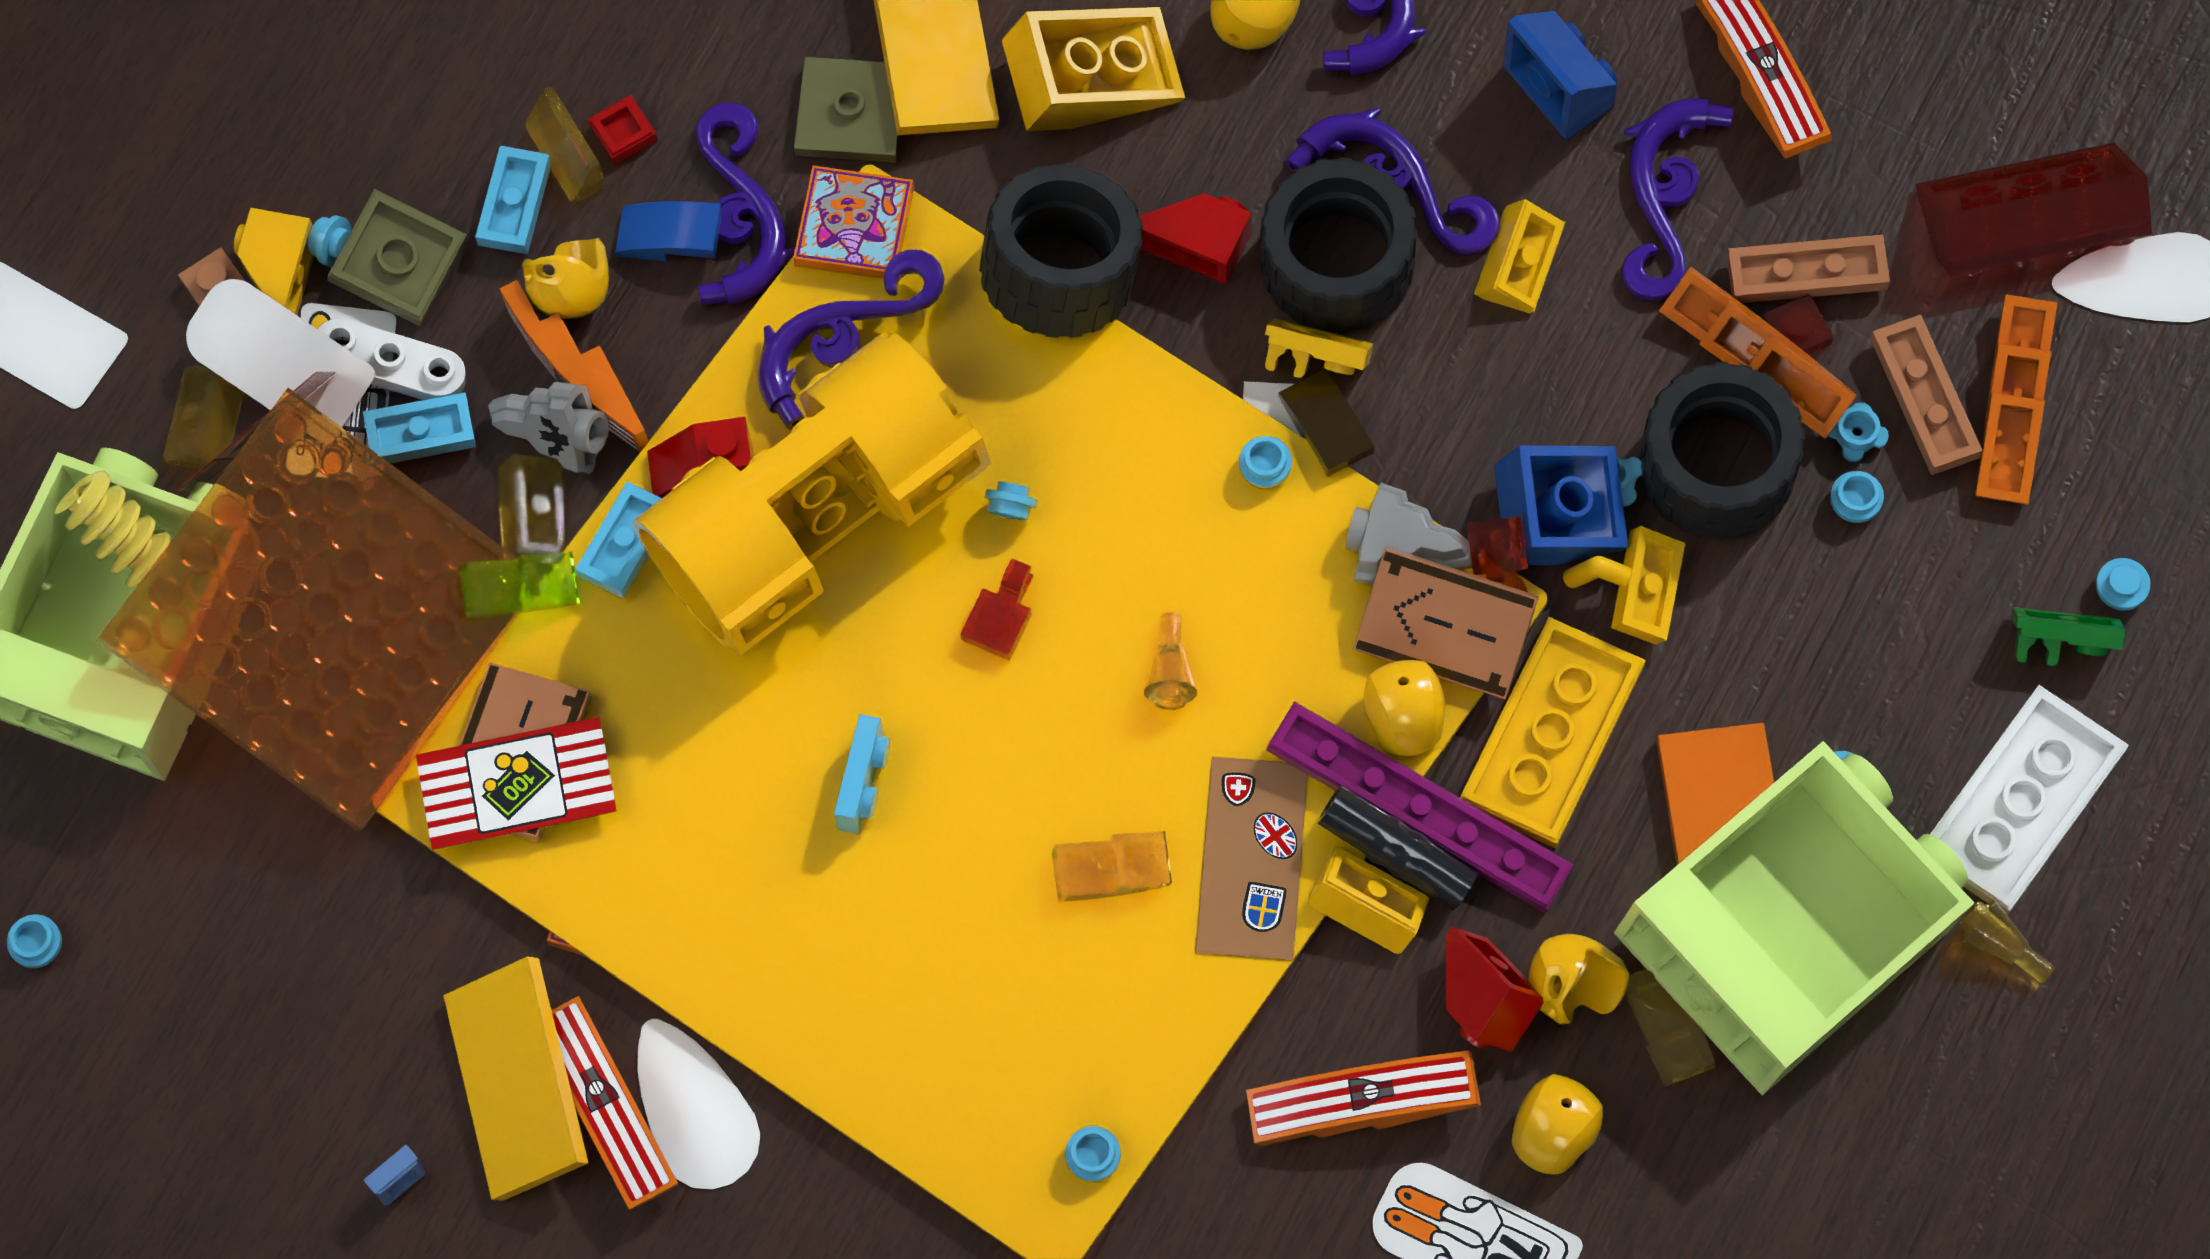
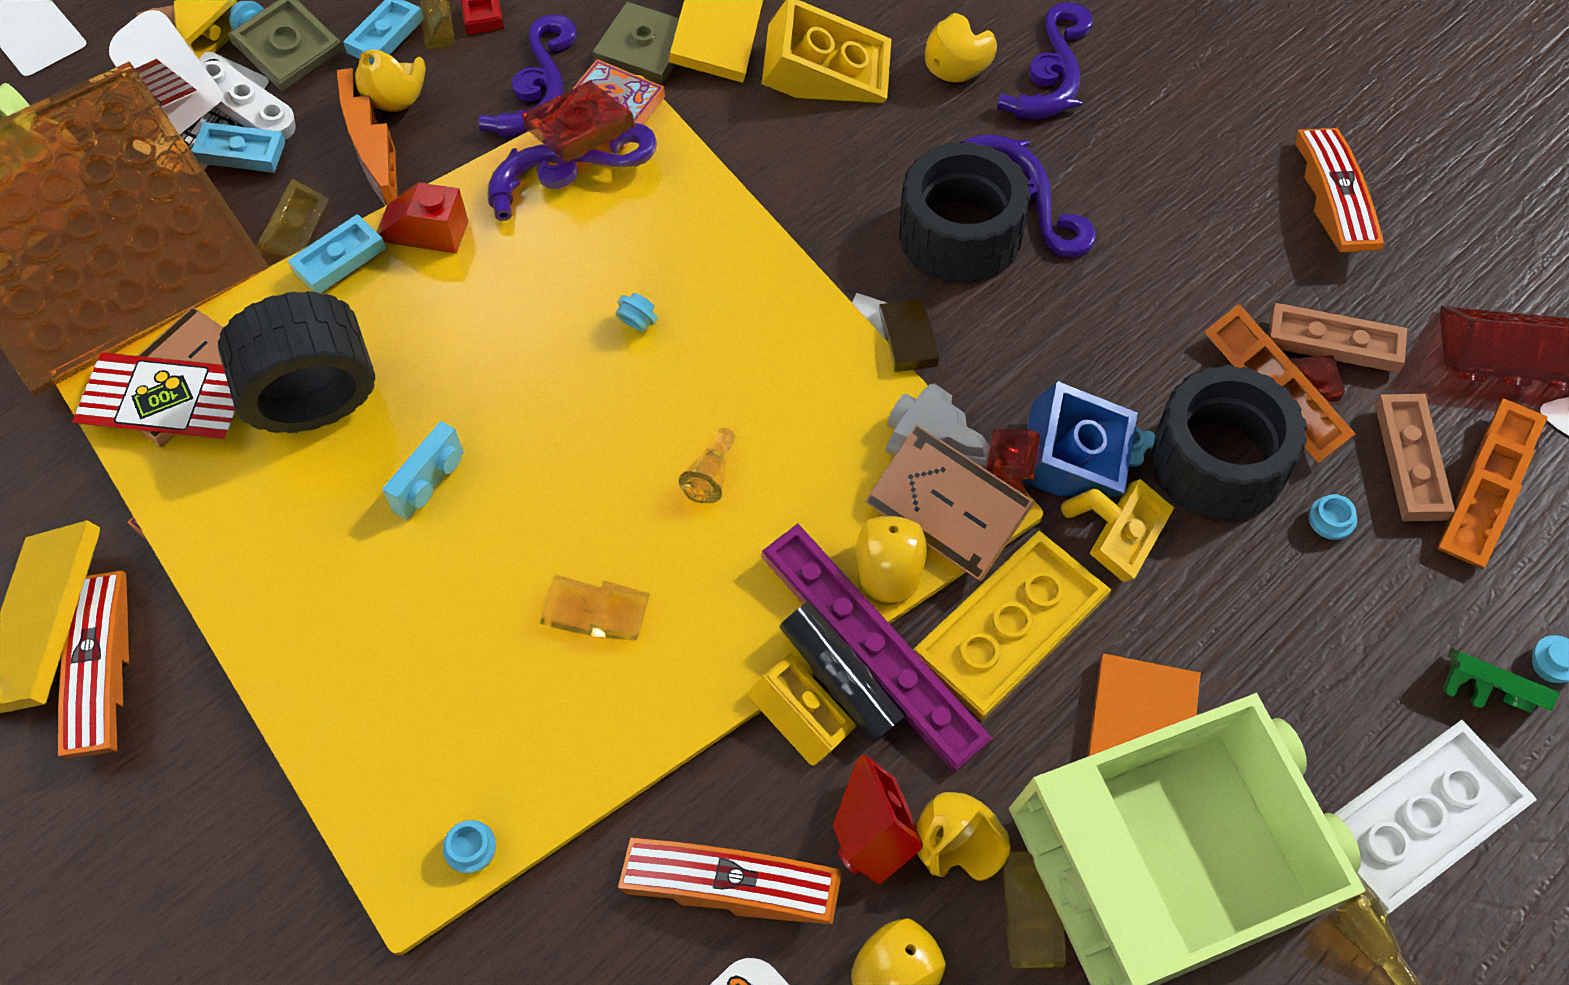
camera: 15 degrees right, 10 degrees down
(519, 584) = (243, 261): clear neon green slope -> none
(556, 423) = (334, 168): light grey rock -> none
(667, 228) = (481, 75): blue slope -> none
(675, 702) = (295, 362): none -> black tyre
(694, 1109) = (170, 697): white sticker -> none
(840, 273) = (578, 121): none -> clear red plate
(871, 442) = (476, 245): yellow cylinder -> none
(999, 618) = (592, 393): clear red plate -> none
(1068, 203) = (748, 153): black tyre -> none
(1199, 234) = (858, 180): red slope -> none
(1252, 859) = (715, 644): medium nougat sticker -> none
(1265, 461) = (848, 343): medium azure plate -> none
(1338, 351) = (936, 288): yellow plate -> none
(1520, 257) = (1104, 268): yellow slope -> none
(1558, 71) = (1174, 148): blue slope -> none
(1653, 196) = (1225, 256): dark purple plant -> none
(1863, 418) = (1355, 461): medium azure plate -> none

